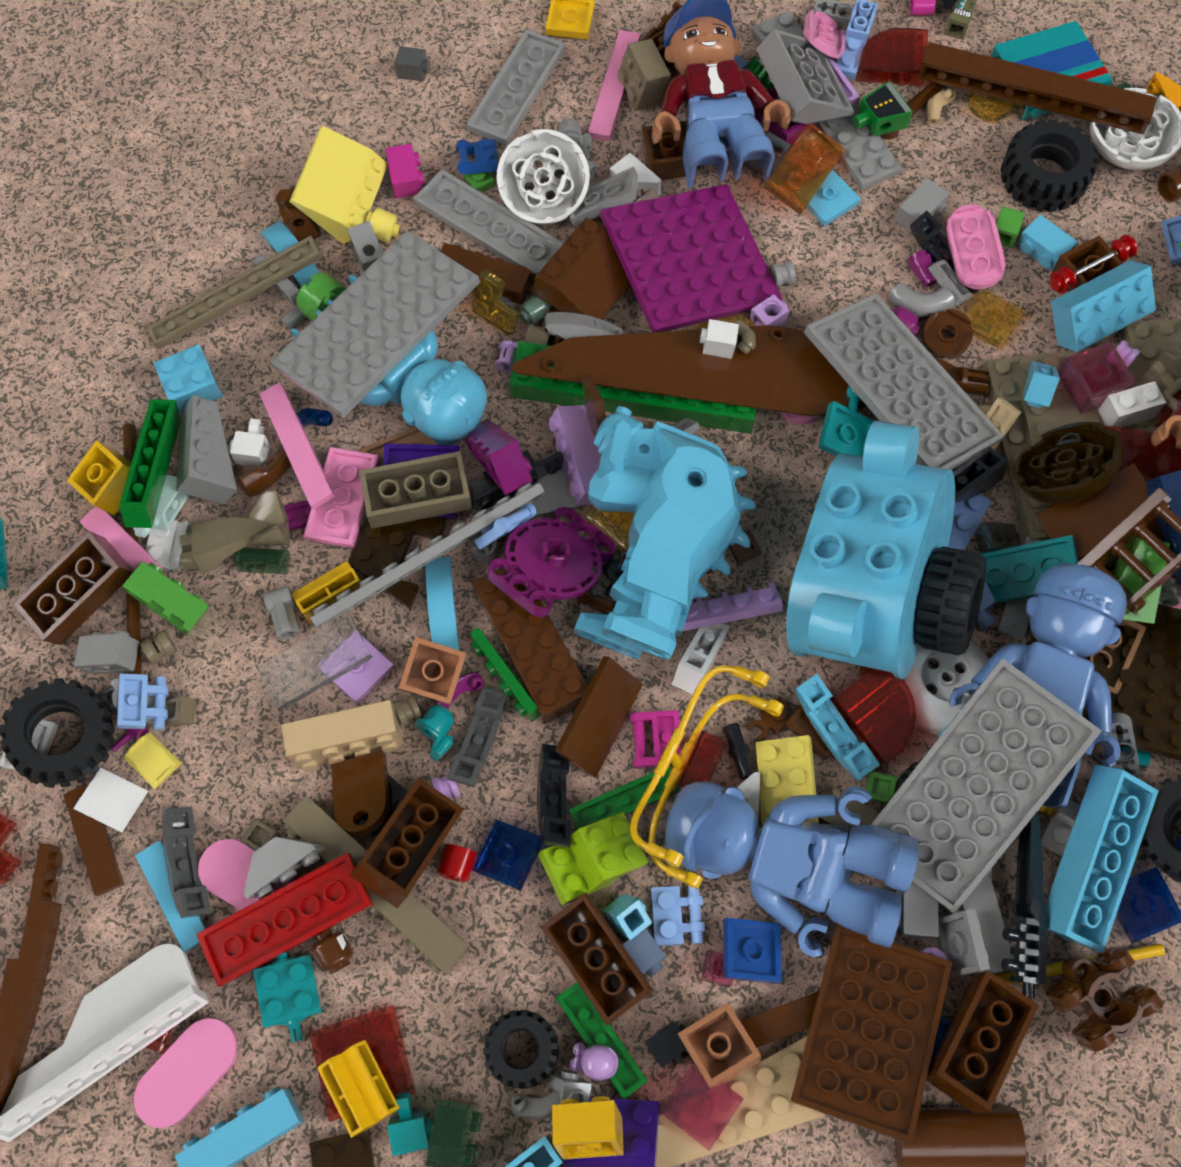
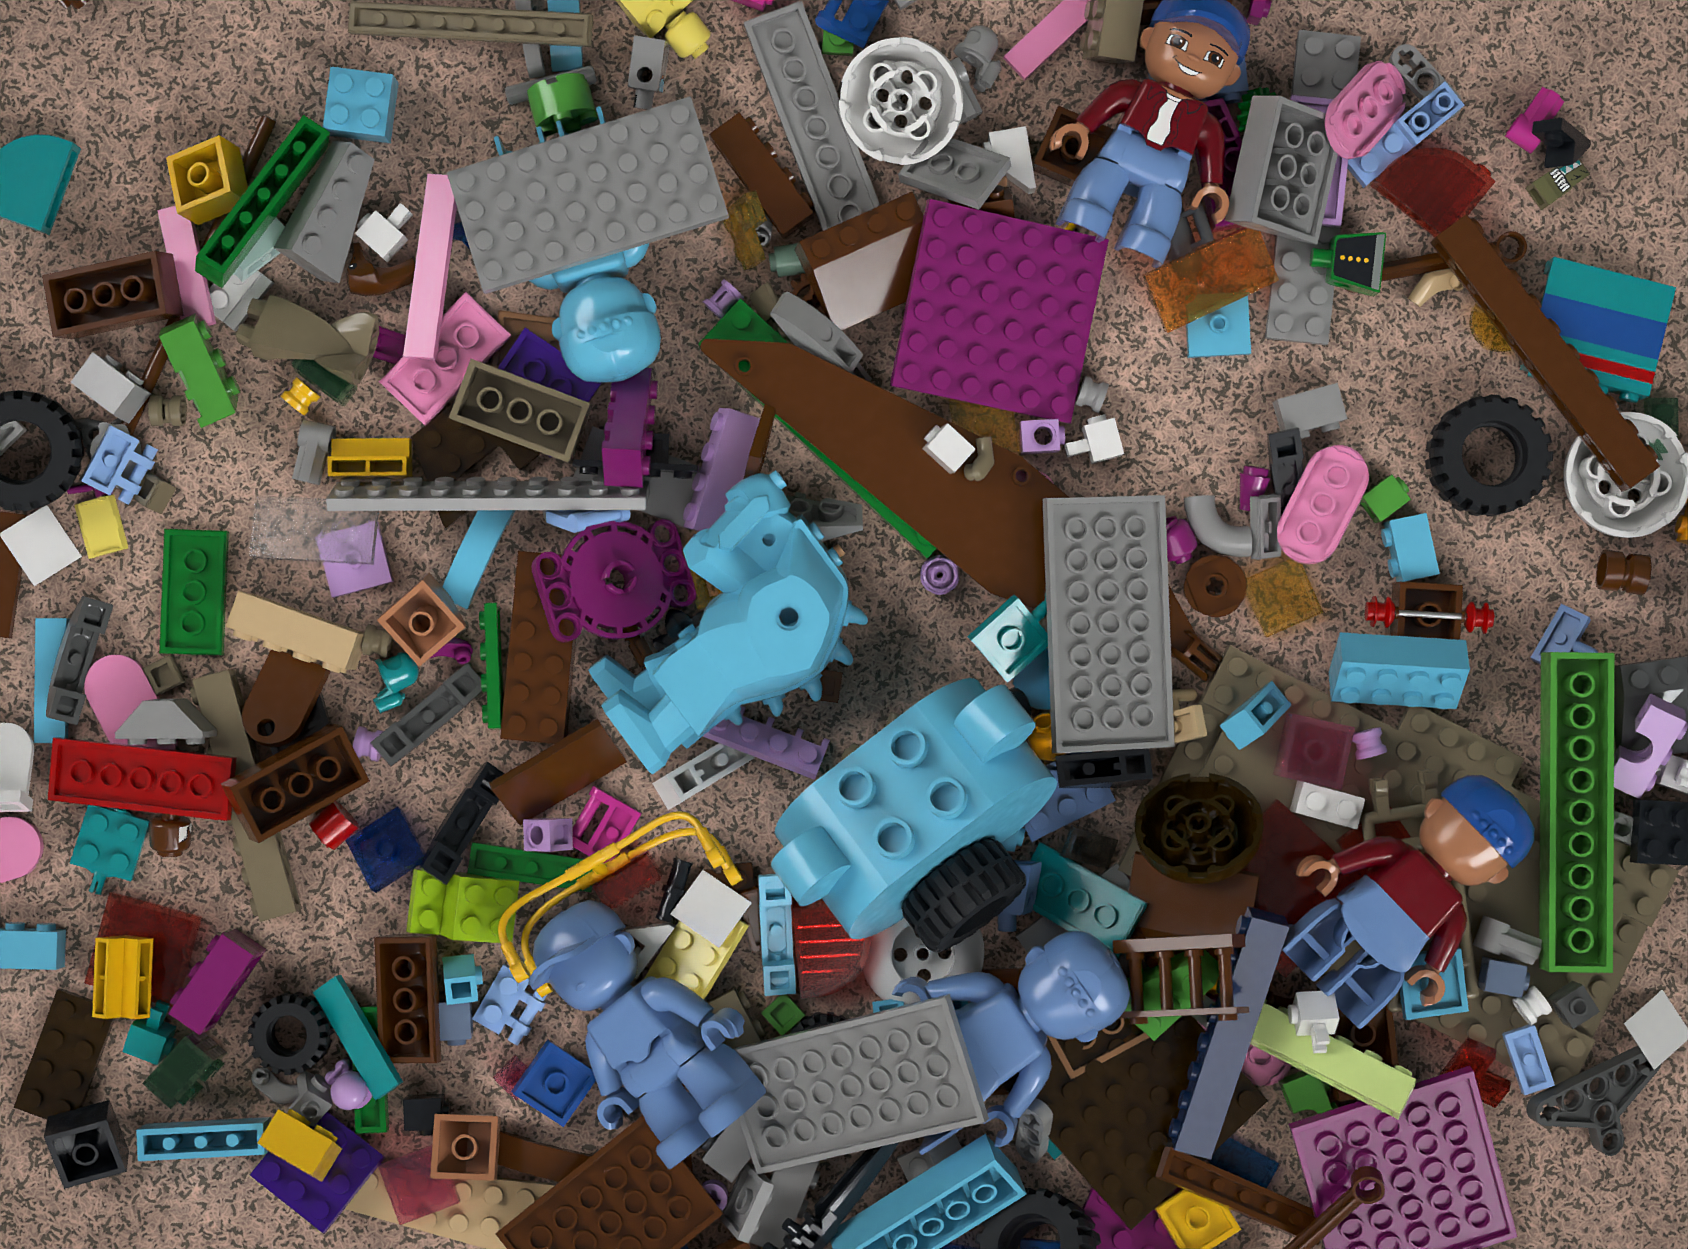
camera: 25 degrees right, 20 degrees up
(249, 763) = (193, 592): none -> green tile
(252, 580) = (300, 396): none -> yellow wheel
(436, 1042) = (216, 980): none -> magenta brick
(577, 1015) = (358, 1037): none -> teal tile
(629, 762) = (548, 834): none -> lavender brick
(771, 427) = (929, 575): none -> lavender plate
(776, 741) = (710, 908): none -> white sticker
(808, 296) = (1100, 440): none -> white brick

